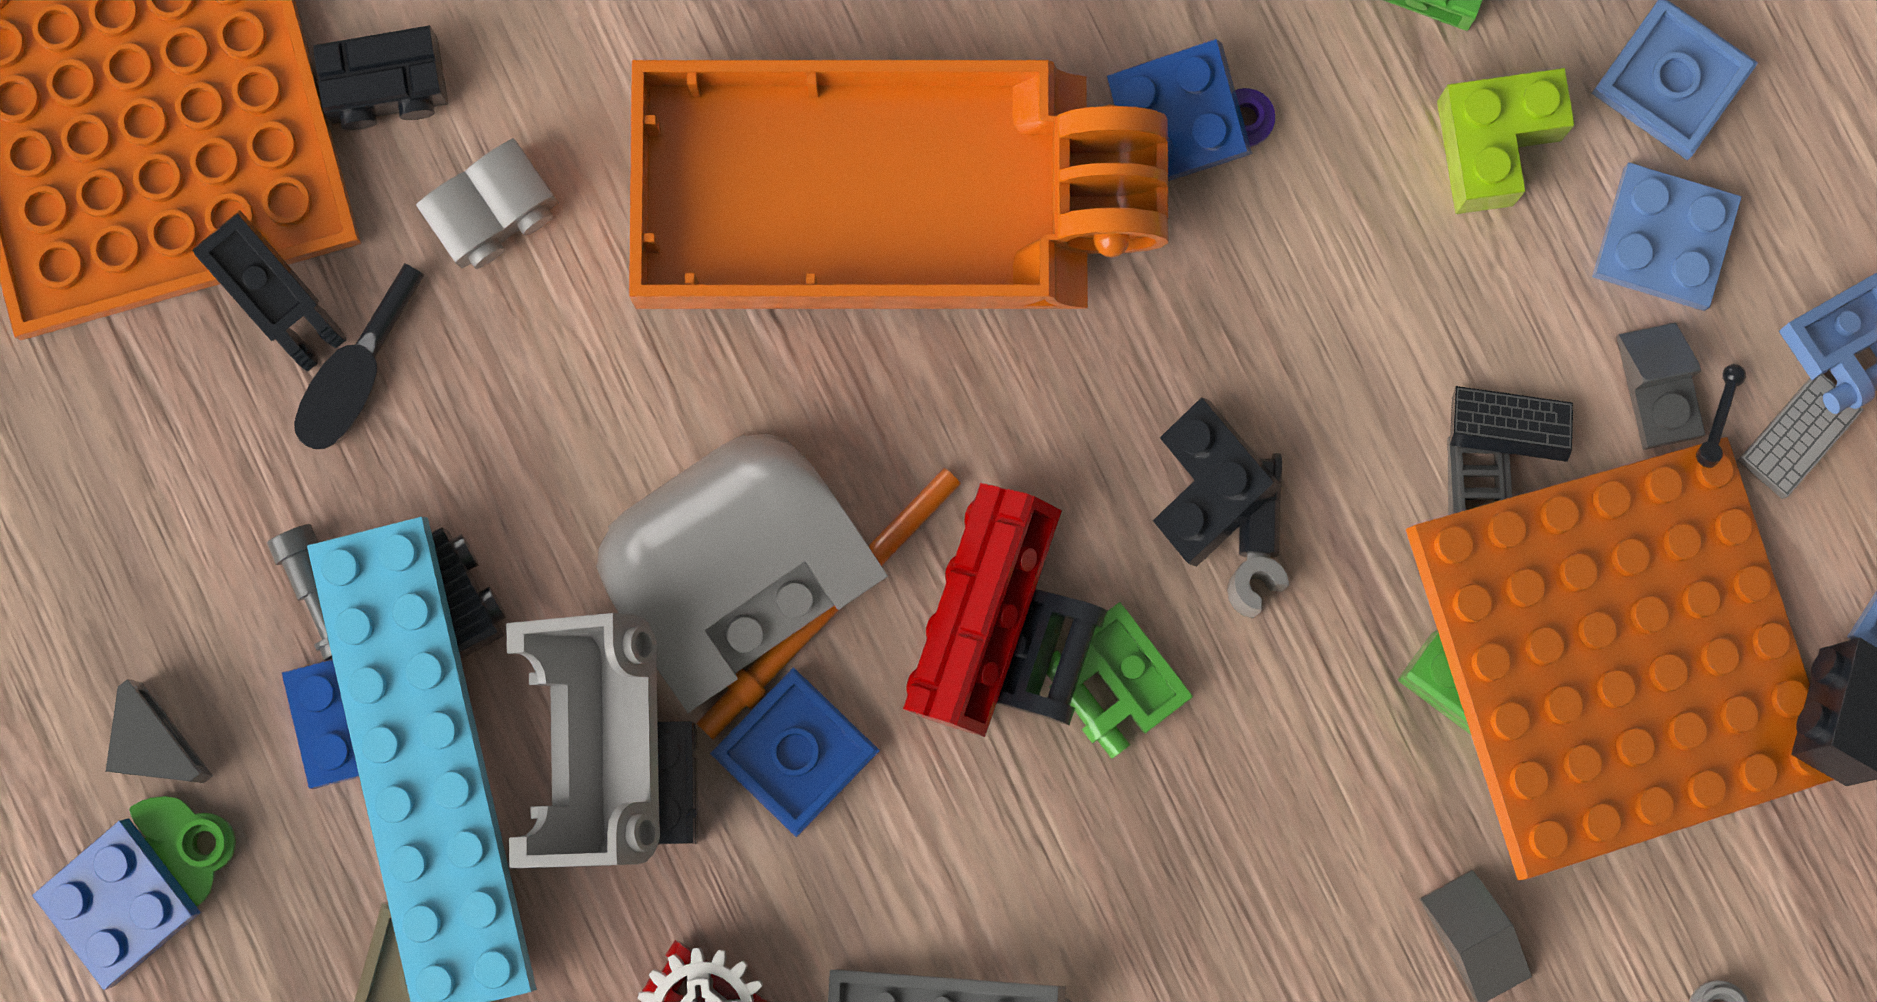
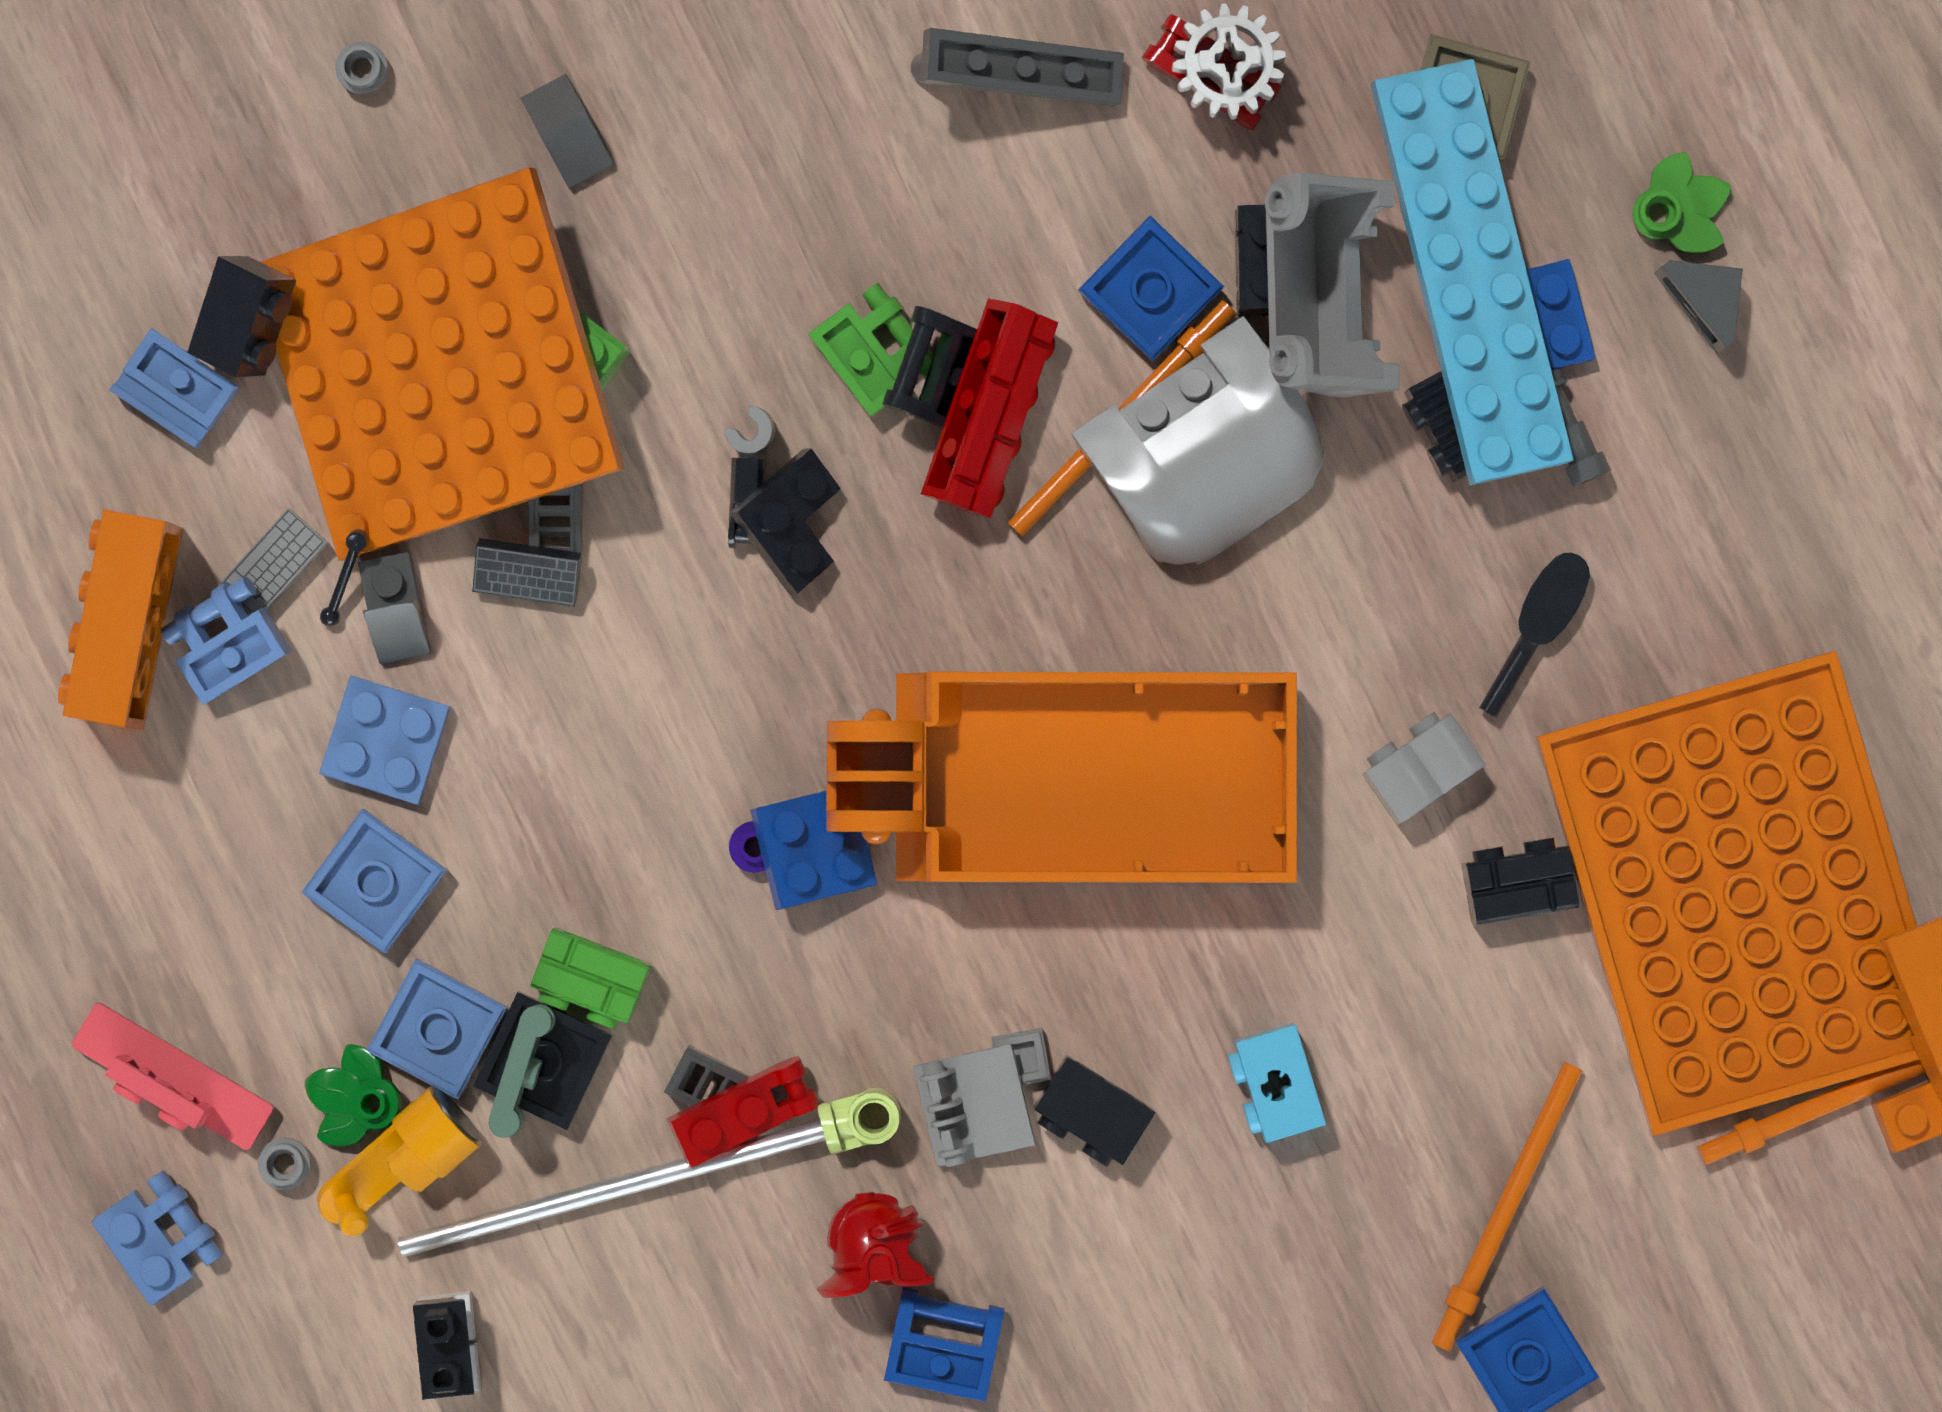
camera: 175 degrees right, 5 degrees up
(116, 903) = (1732, 160): plate -> none
(266, 287) = (1615, 690): black hinge -> none
(1488, 123) = (543, 837): lime brick -> none

